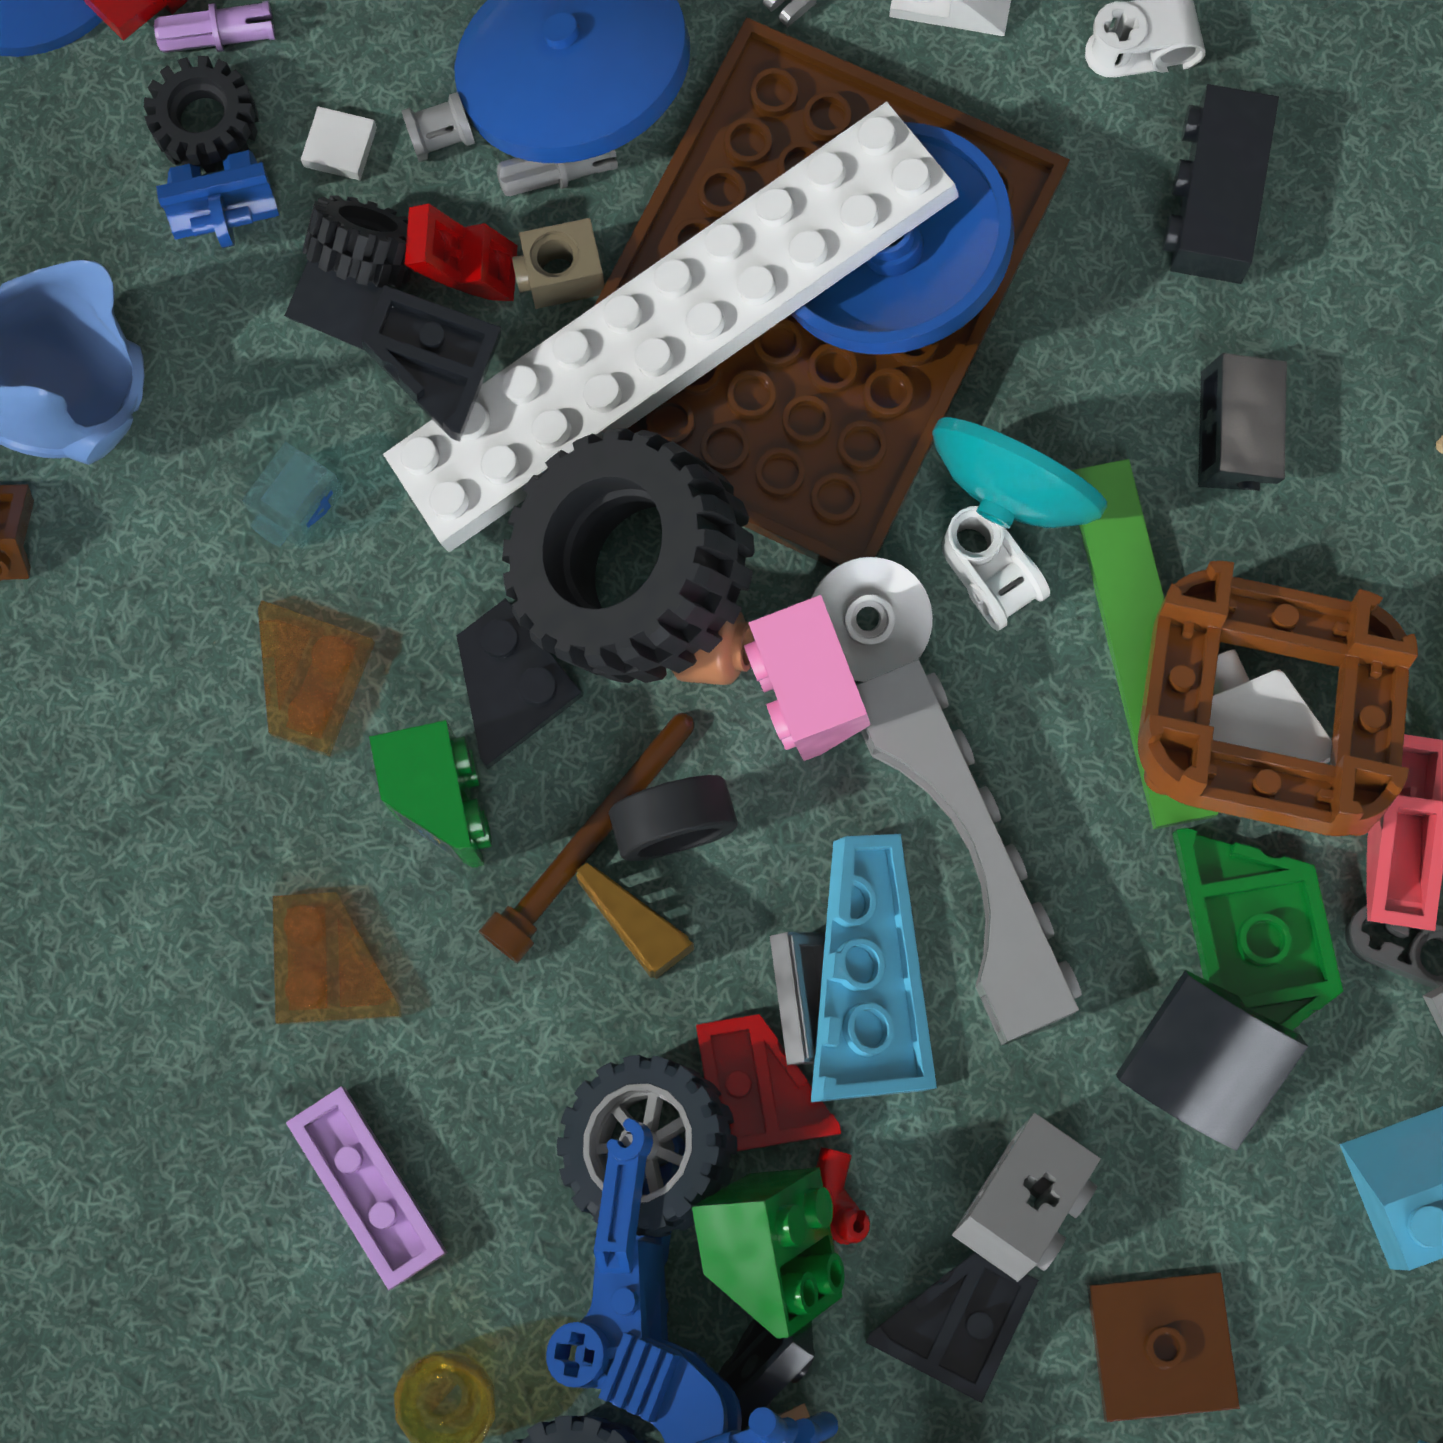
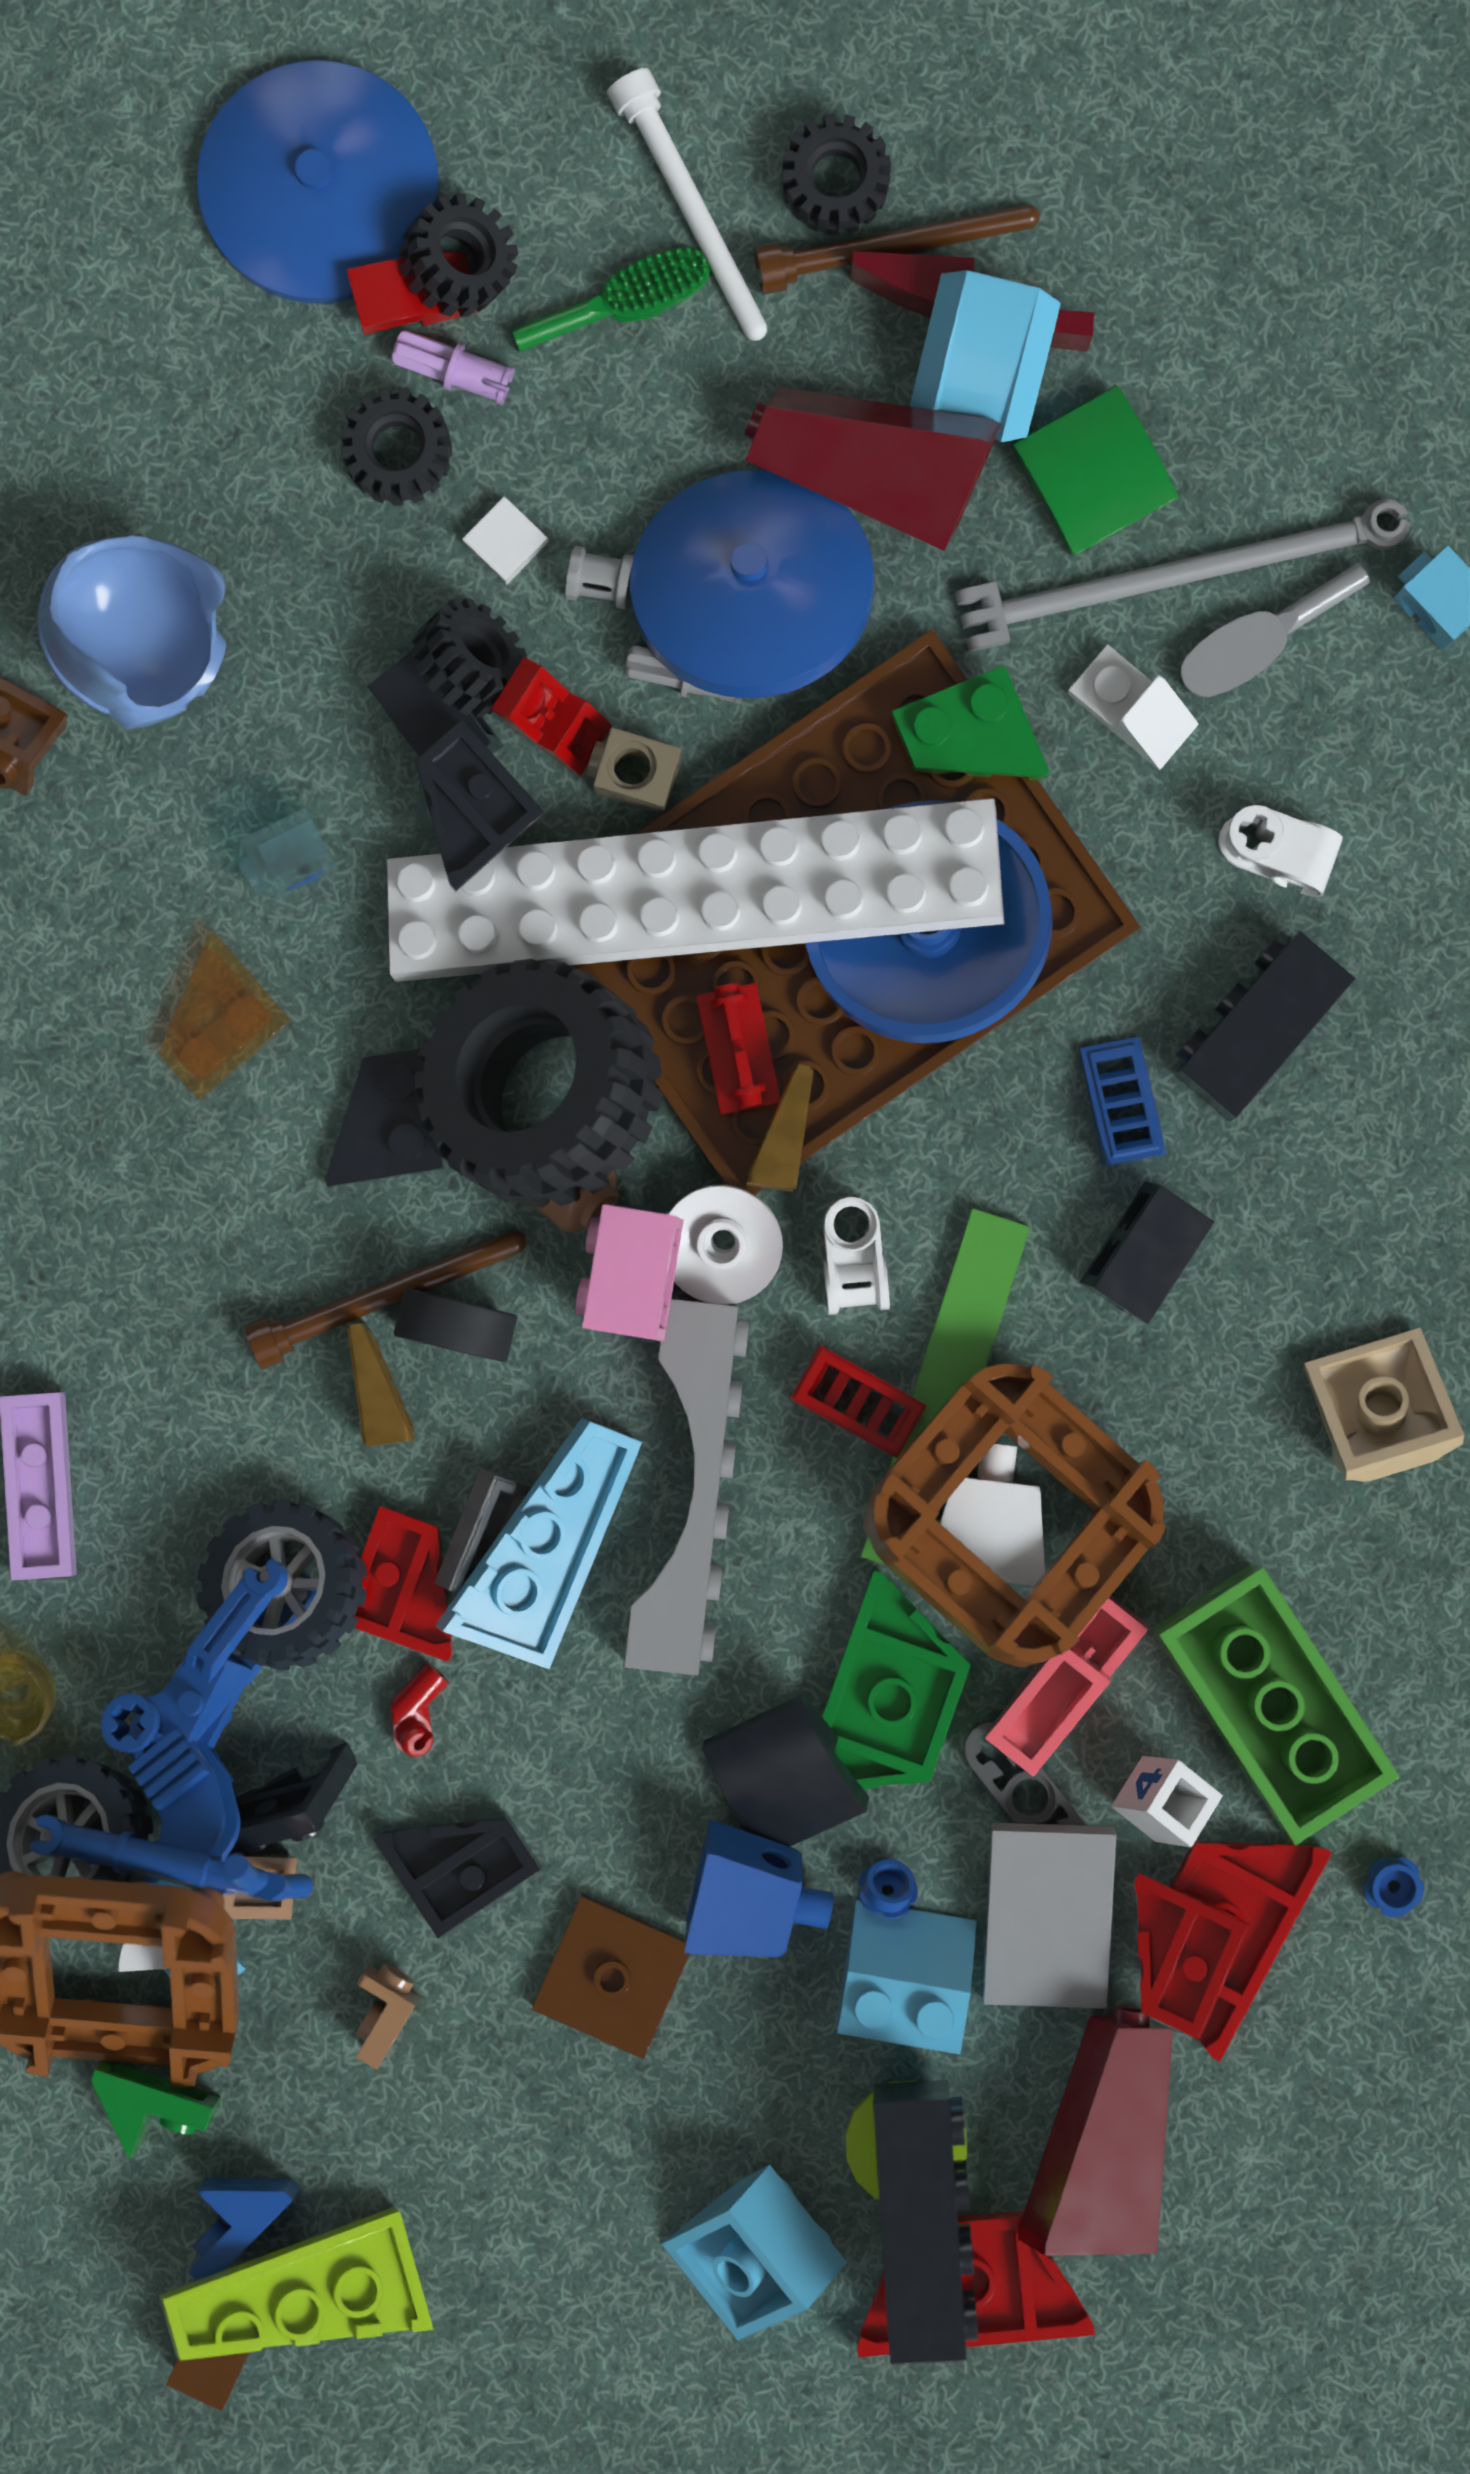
camera: 25 degrees right, 10 degrees up
(217, 200) = (366, 543): blue hips -> none
(324, 964) = (102, 1279): clear orange wing -> none
(426, 786) = (256, 1183): green slope -> none
(772, 1247) = (335, 1724): green slope -> none
(785, 439) = (738, 1048): none -> red hinge
(830, 75) = (971, 730): none -> green wing
(877, 502) = (780, 1152): none -> pearl gold slope
(1001, 1222) = (533, 1803): light grey brick -> none
(1014, 478) = (903, 1202): teal dish -> none
(1069, 668) = (903, 1426): none -> red slope
(1141, 342) = (1131, 1151): none -> blue slope
(1246, 1192) = (749, 1896): none -> blue torso
(1369, 1101) = (888, 1874): none -> blue plate

